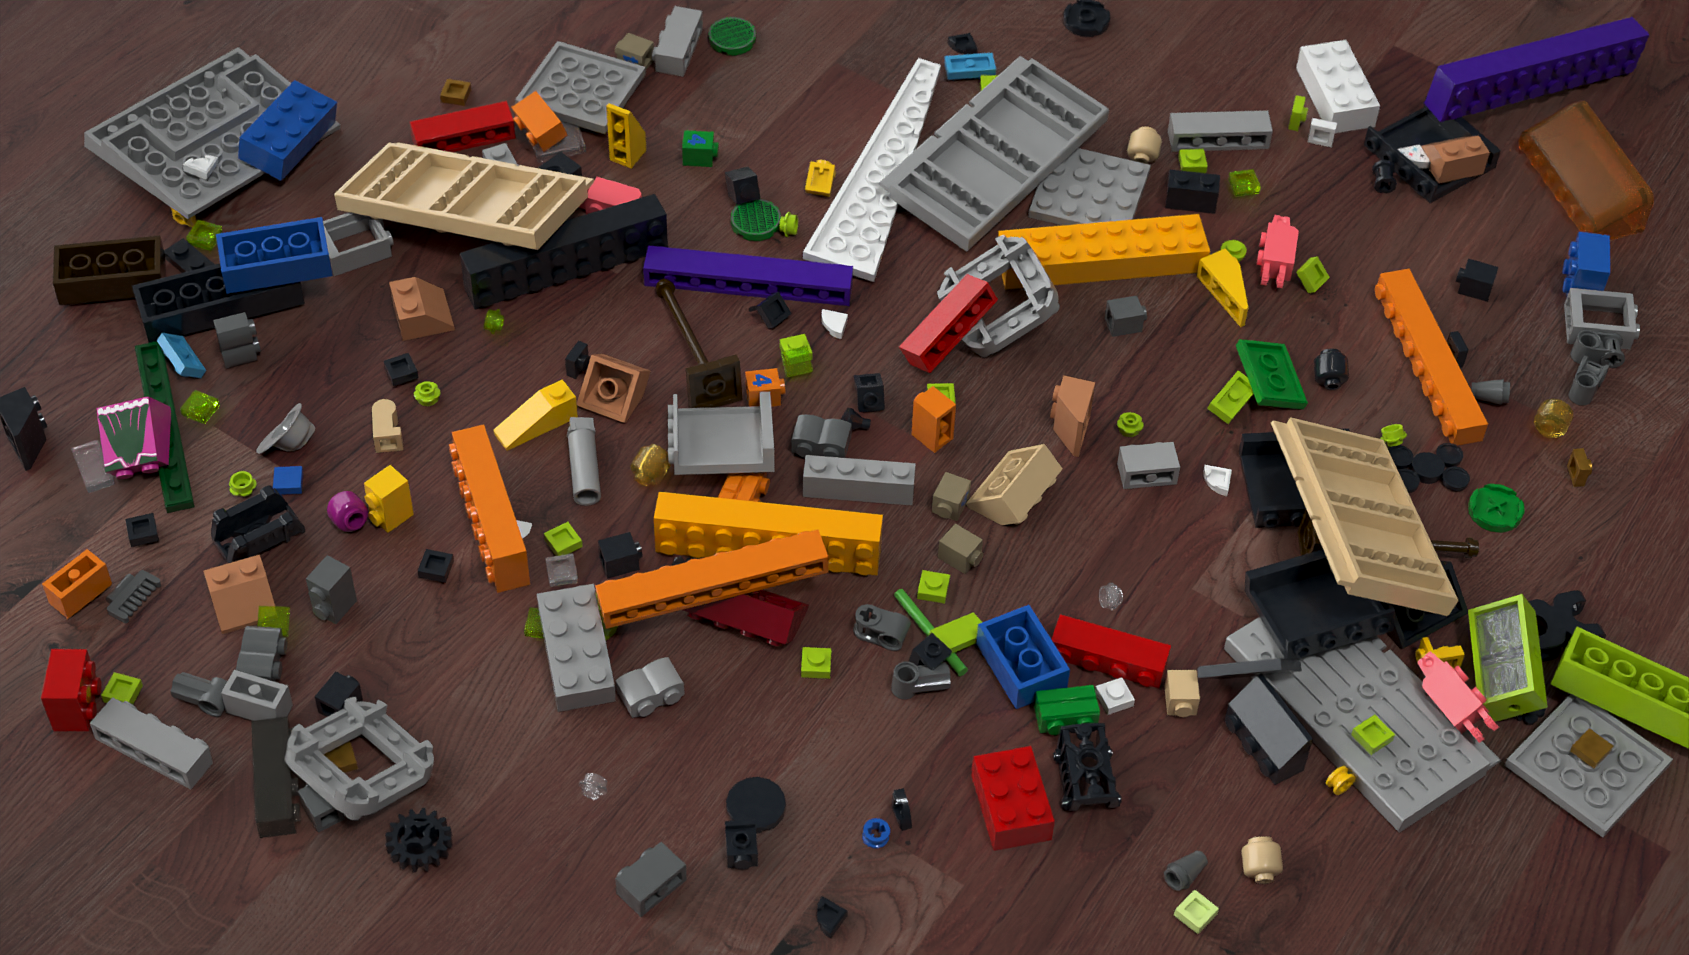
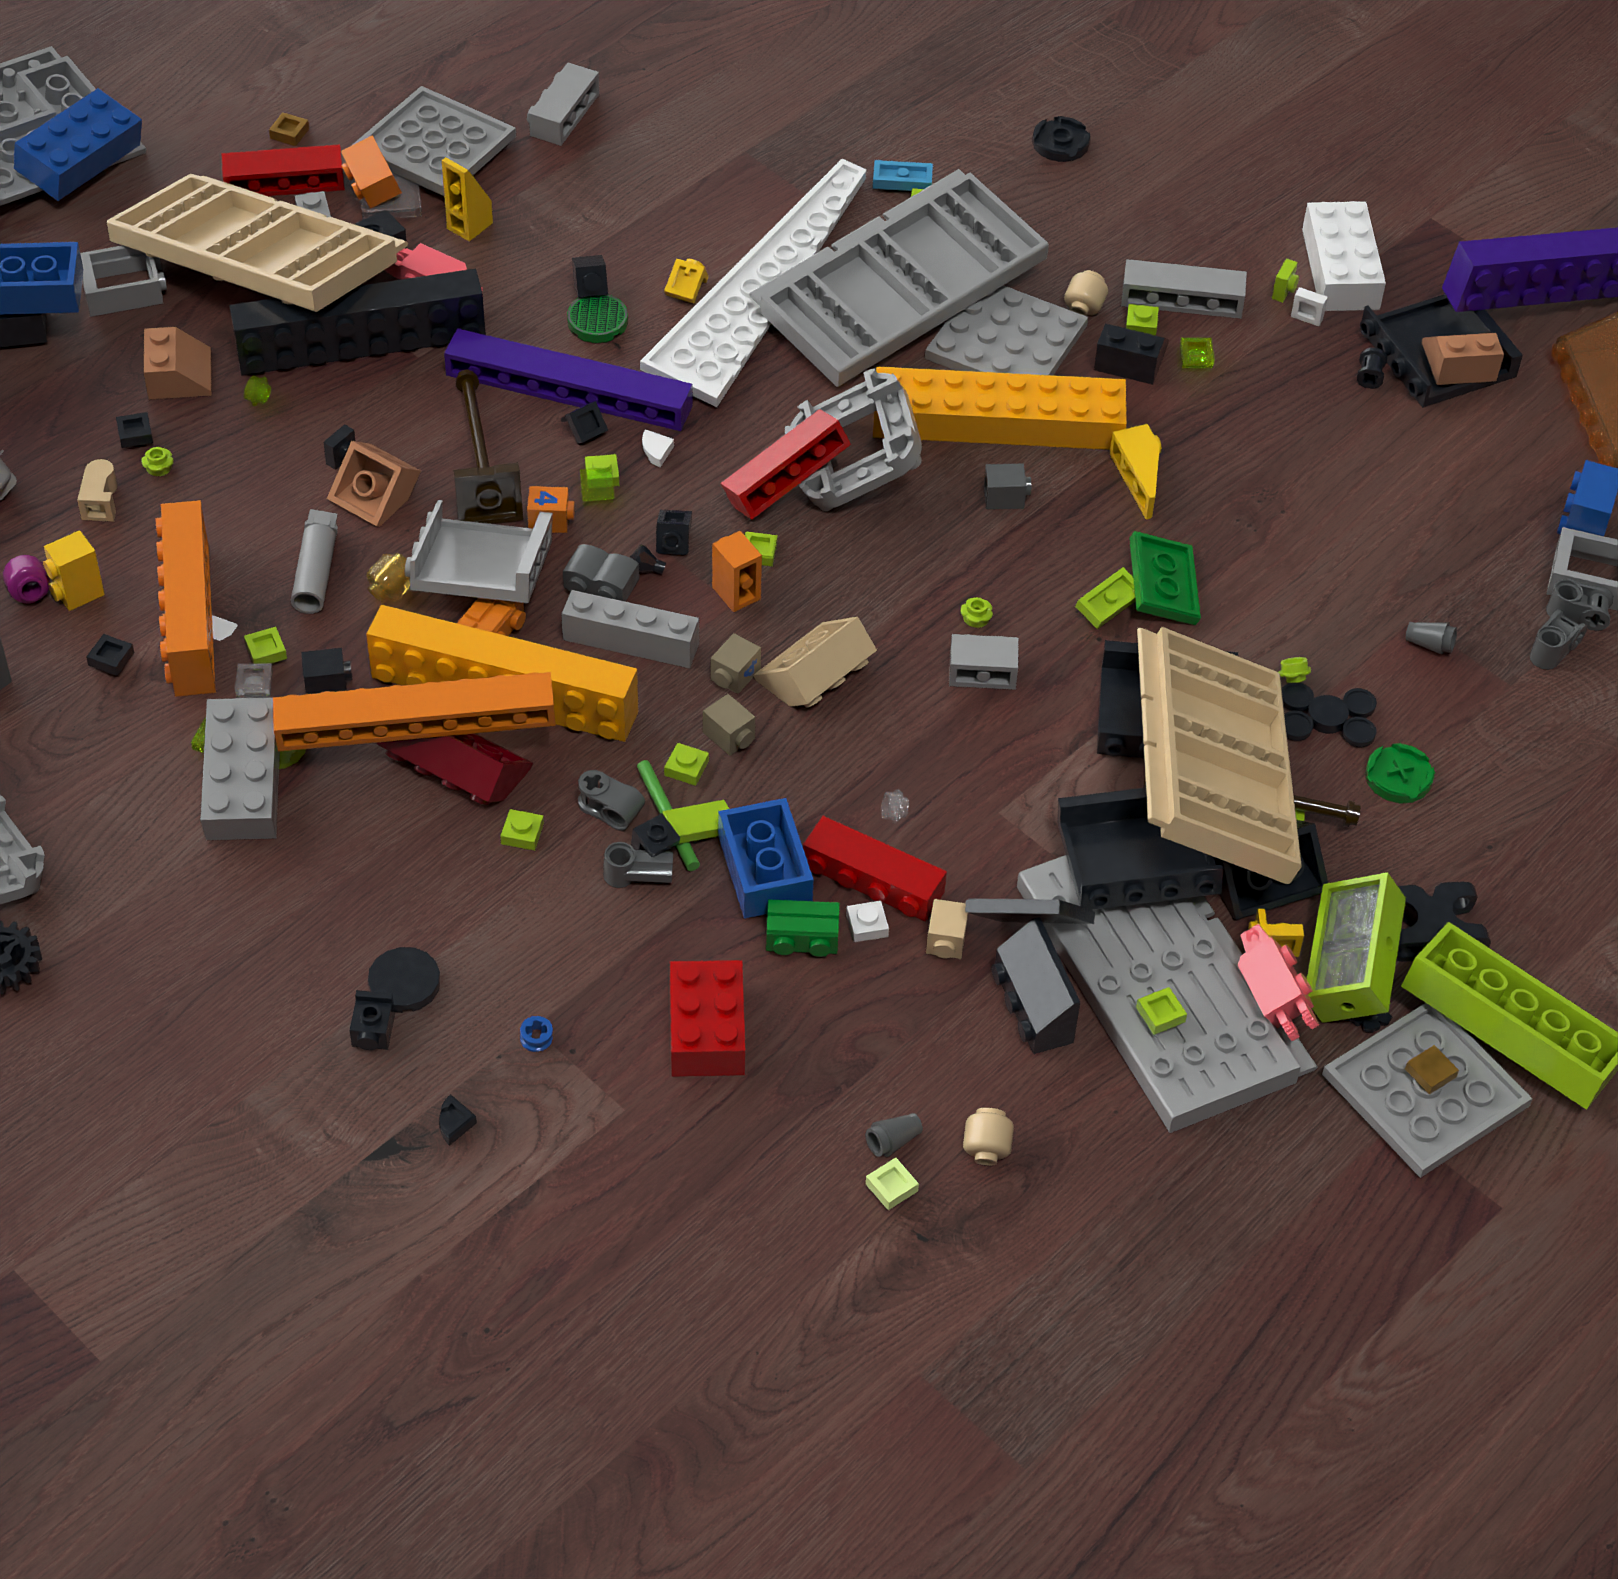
camera: 10 degrees right, 0 degrees up
(538, 415) = (276, 503): yellow slope -> none
(593, 786) = (220, 928): clear plate -> none
(635, 50) = (509, 108): dark tan brick -> none
(650, 687) = (317, 827): light grey brick -> none
(650, 878) = (255, 1043): dark grey brick -> none
(699, 148) = (552, 228): green brick -> none
(732, 35) = (630, 106): tile -> none
(789, 224) = (634, 328): lime plate -> none
(901, 809) = (572, 1010): black tile -> none
(963, 44) = (902, 149): black tile -> none
(1072, 411) = (908, 585): nougat slope -> none
(1072, 770) = (828, 986): black piece -> none
(1217, 479) = (1066, 690): white tile -> none
(1235, 248) = (1163, 428): lime plate -> none
(1278, 252) = (1214, 437): coral hinge -> none
(1312, 274) = (1249, 469): lime plate -> none
(1331, 369) = (1239, 582): black head -> none
(1340, 780) = (1112, 1059): yellow bush -> none
(1416, 155) = (1416, 348): white tile -> none
(1431, 357) = (1367, 586): orange brick -> none
(1457, 347) = (1402, 581): black tile -> none
(1476, 279) = (1451, 503): black brick -> none
(1553, 418) = (1499, 677): clear yellow head -> none
(1579, 467) = (1516, 740): pearl gold plate -> none

